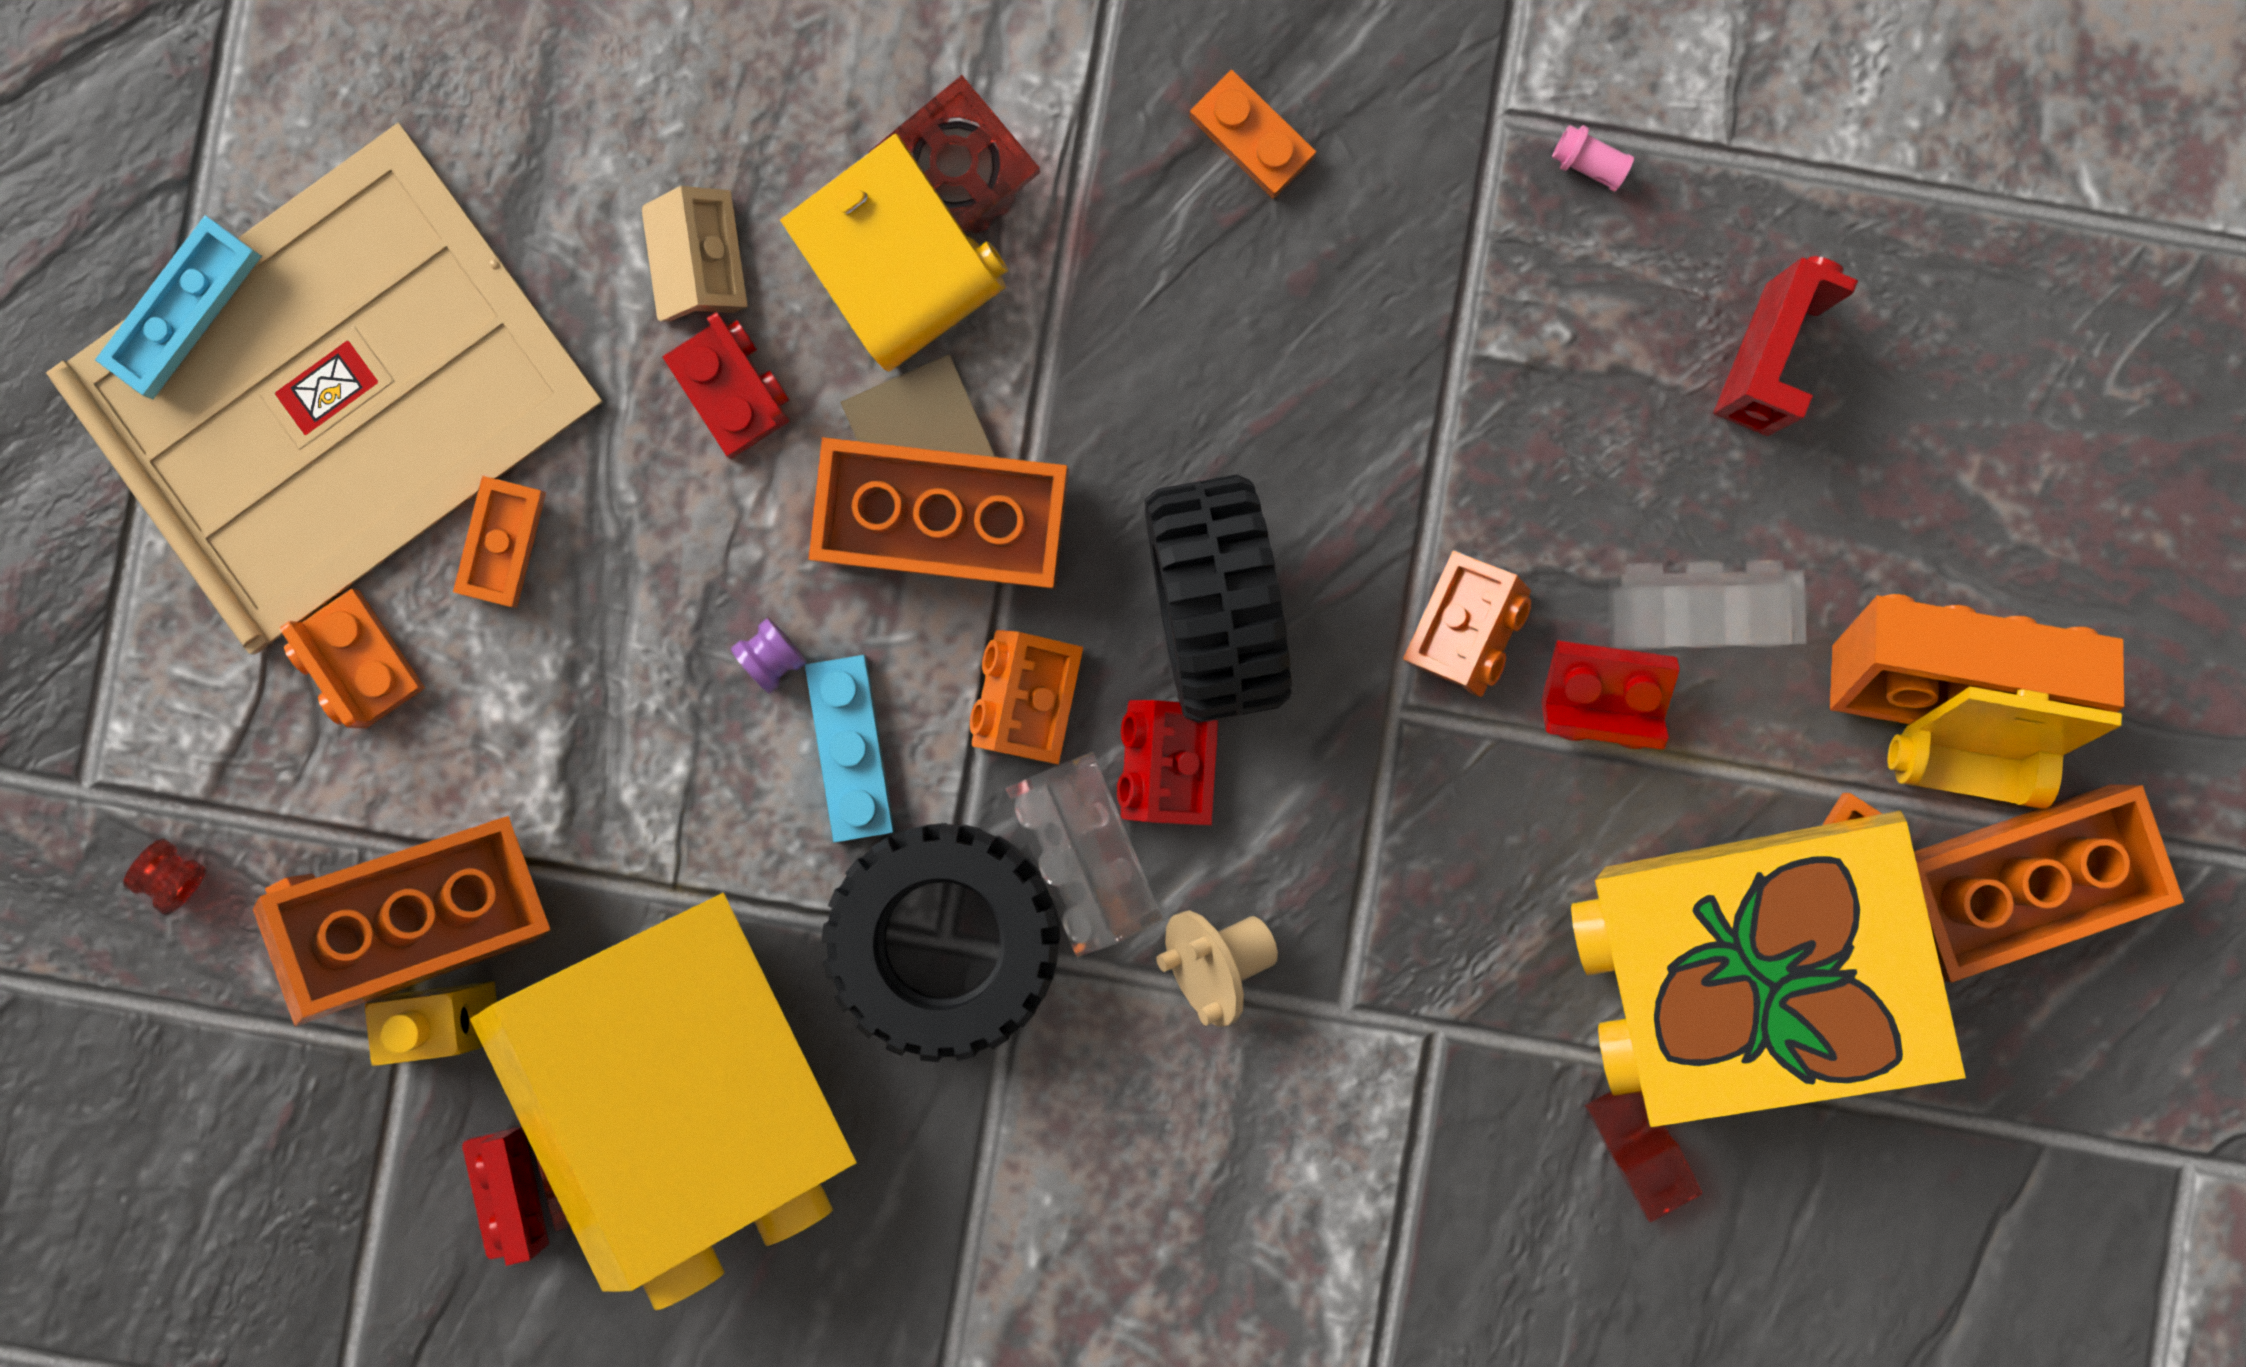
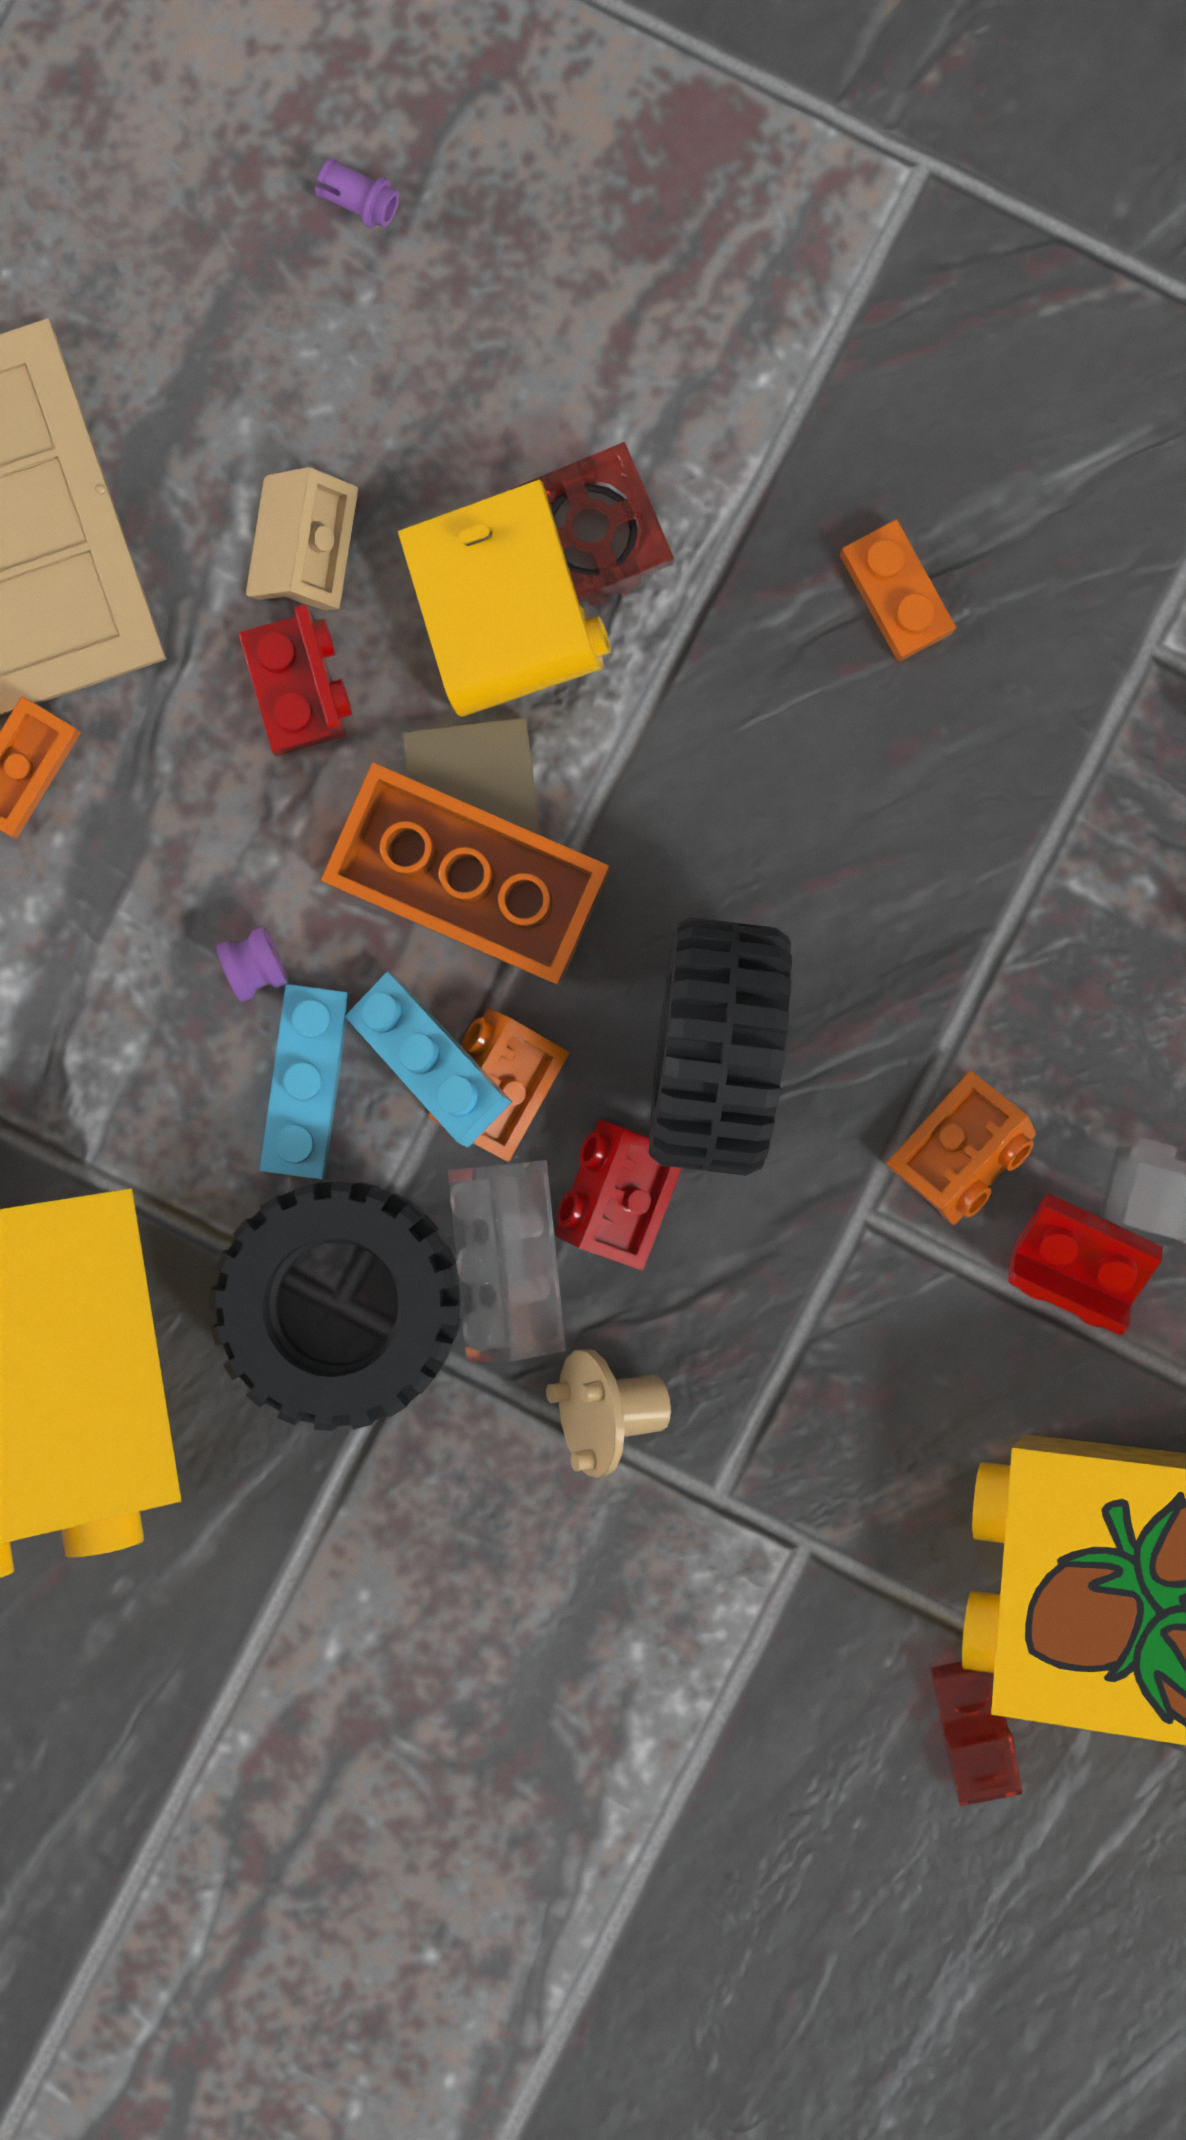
camera: 15 degrees right, 0 degrees up
(956, 692) = (428, 1059): none -> medium azure plate

